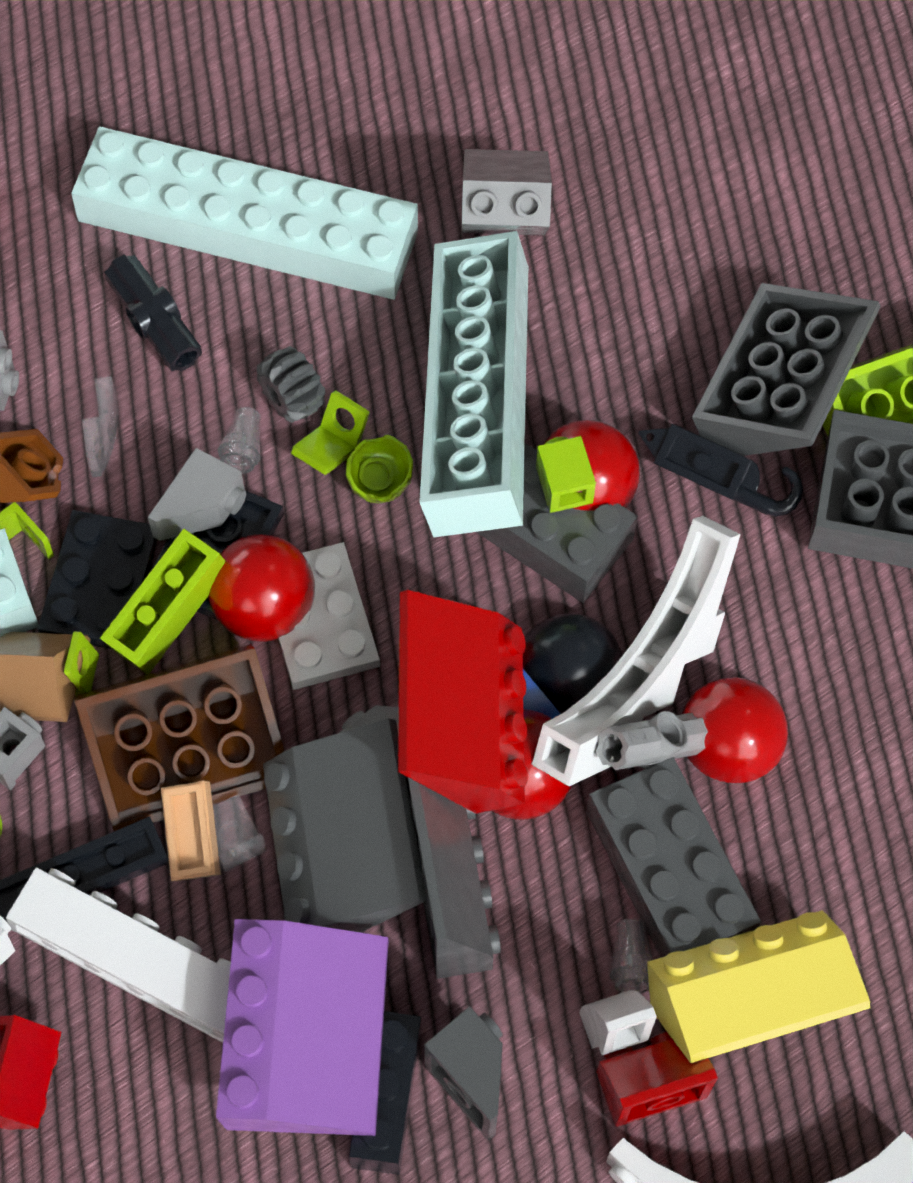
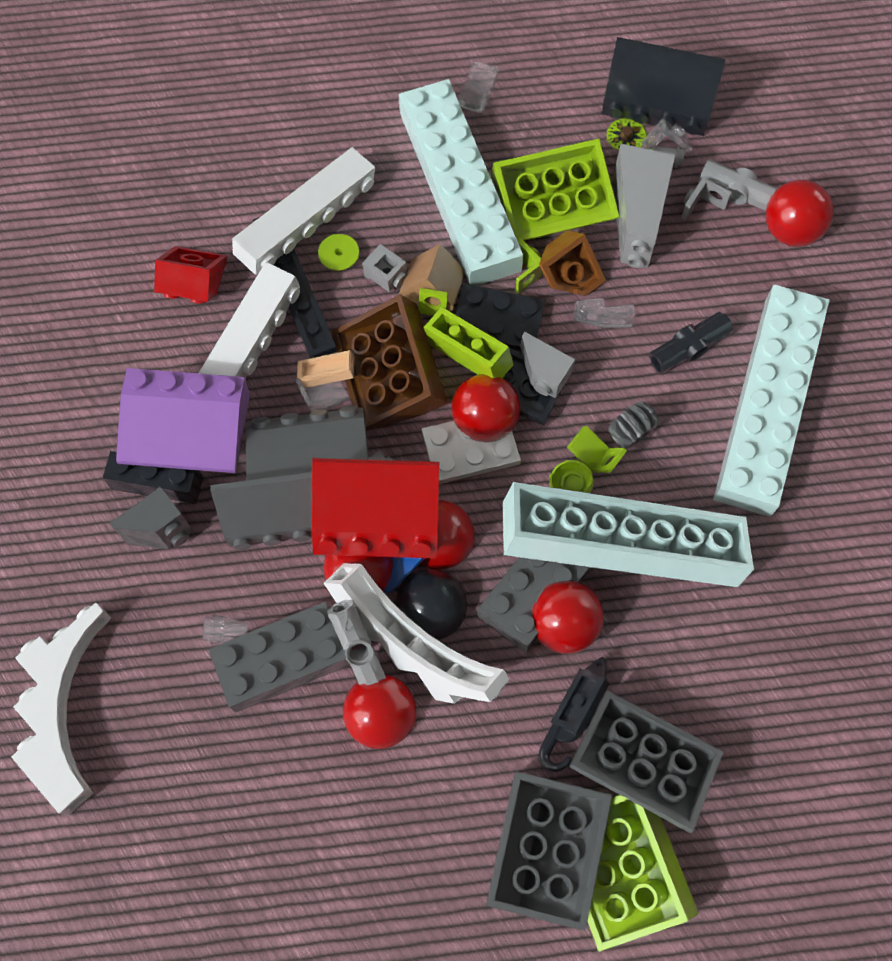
camera: 95 degrees right, 5 degrees up
(242, 441) = (595, 398): clear cone -> none
(506, 192) = (781, 558): light grey slope -> none
(564, 471) = (551, 589): lime brick -> none
(618, 1021) = (171, 608): white slope -> none
(652, 1080) = (139, 634): red slope -> none
(756, 986) = (184, 700): light yellow slope -> none

